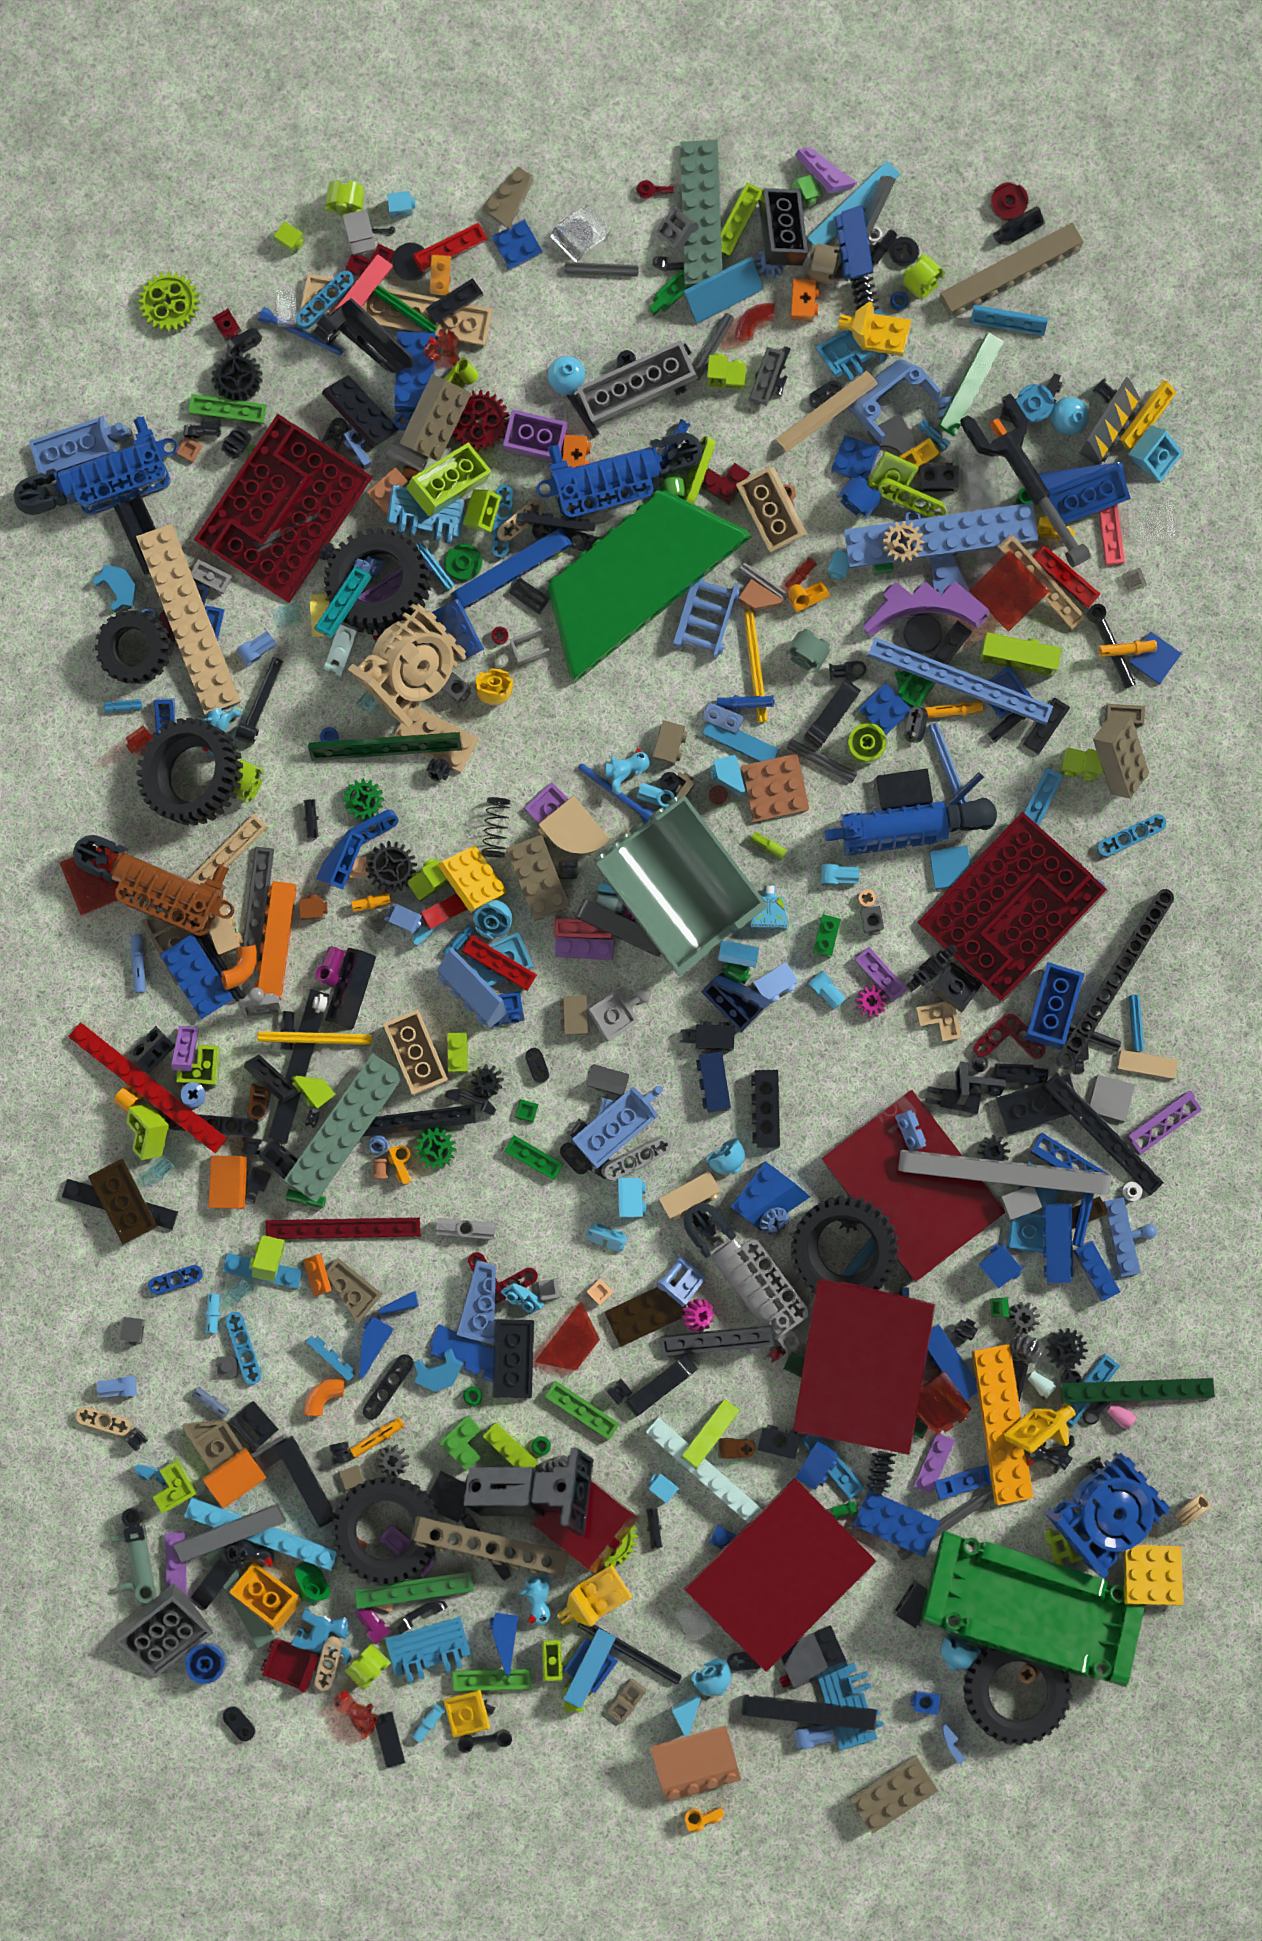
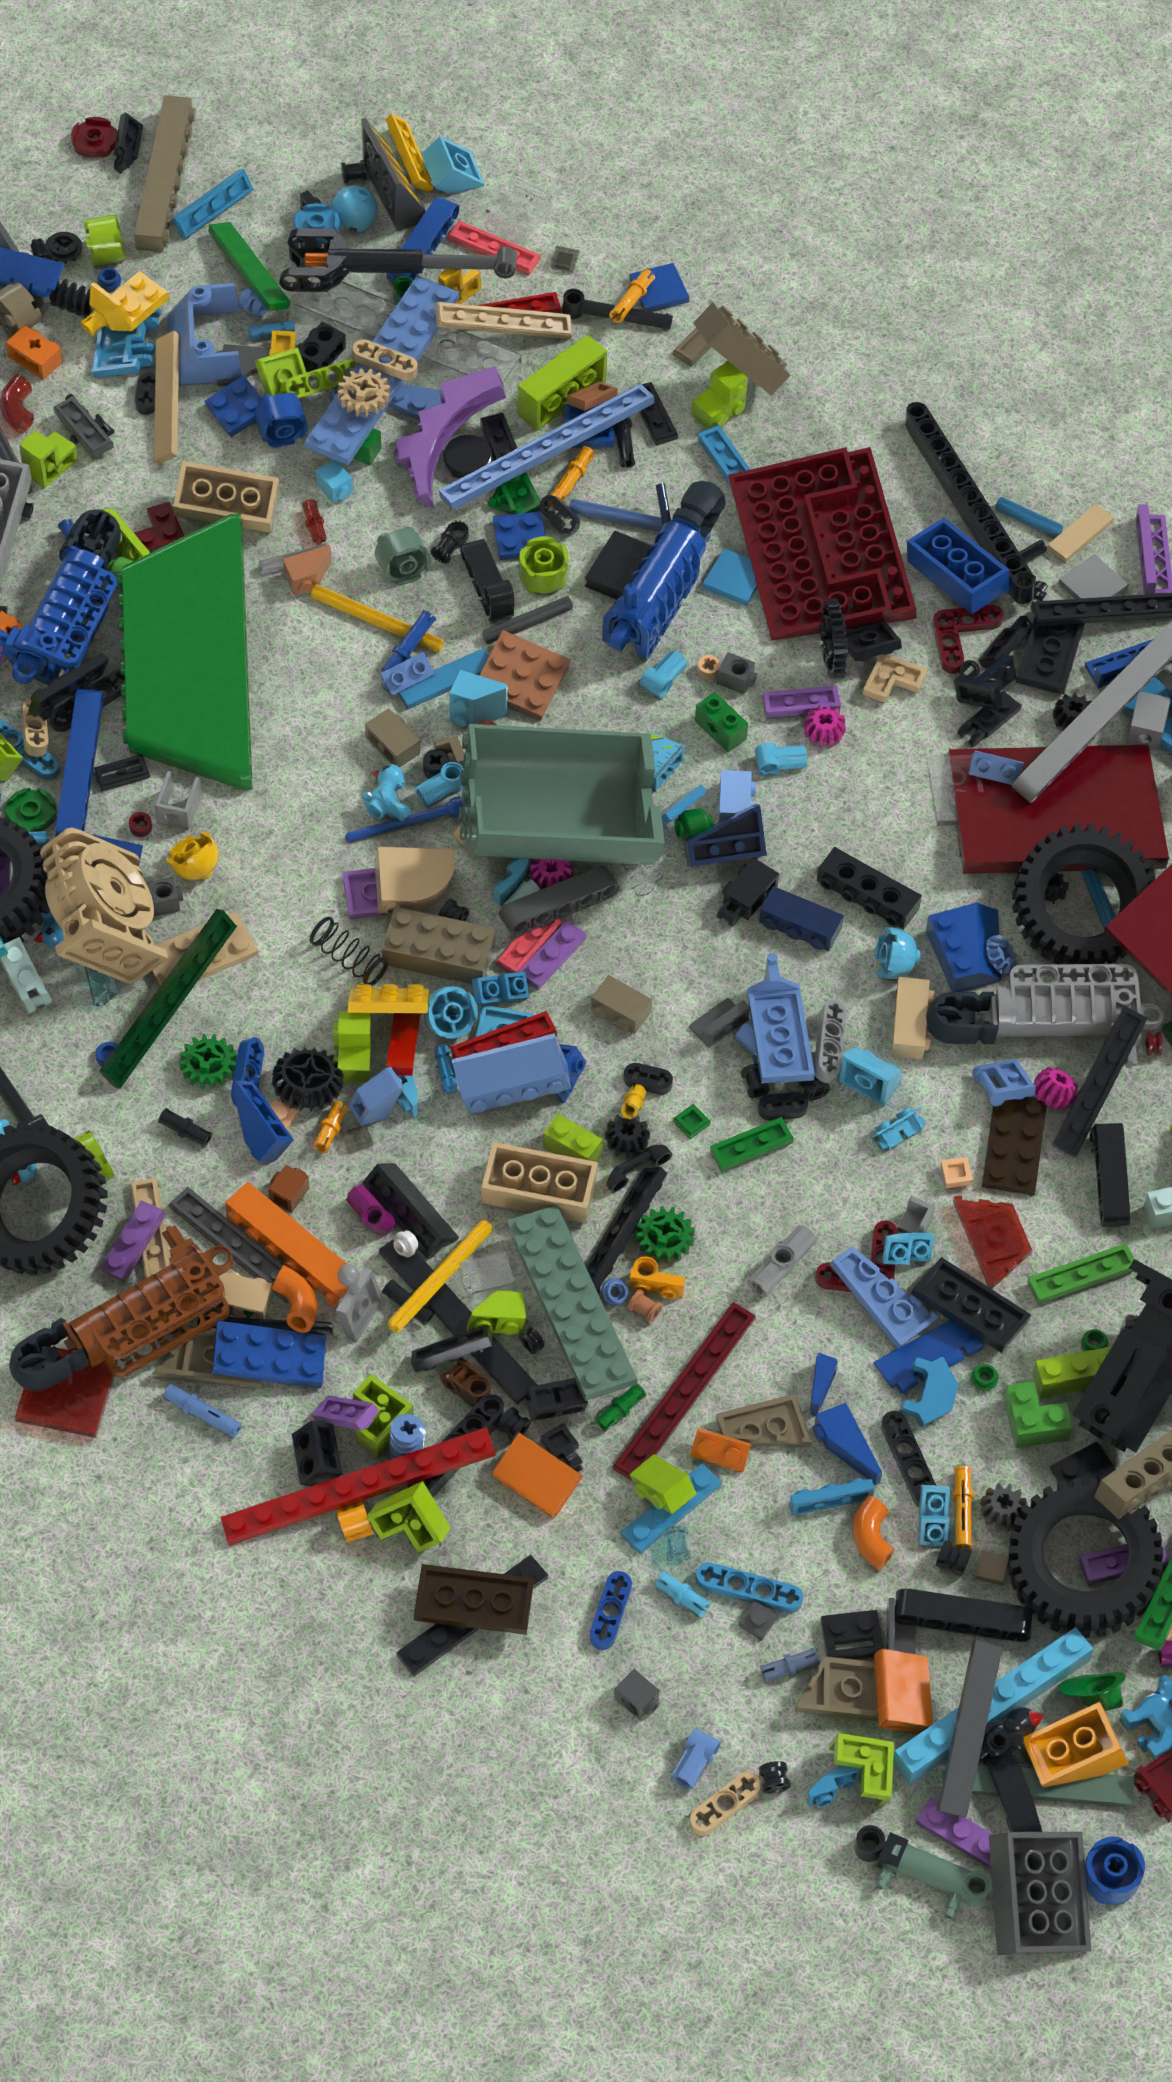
camera: 55 degrees left, 25 degrees down
(163, 1167) = (465, 1536): clear light blue bush -> none
(215, 844) = (133, 1241): none -> medium lavender plate
(359, 1424) = (933, 1515): none -> medium azure slope
(438, 769) = (238, 967): black gear -> none
(509, 1070) = (633, 1101): none -> yellow pin
(536, 935) = (500, 988): none -> dark azure slope
(614, 1012) = (648, 964): light grey plate -> none
(622, 1388) = (1087, 1222): black wheel -> none
(688, 619) = (273, 644): medium blue fence -> none
(768, 845) = (580, 718): lime axle -> none
(803, 598) = (342, 531): light orange plate -> none
(949, 547) = (379, 351): none -> tan beam
(1009, 590) = (491, 340): clear red plate -> none
(1027, 679) = (592, 396): none -> nougat tile
(1090, 493) = (449, 226): blue plate -> none
(1132, 837) = (825, 409): dark azure beam -> none

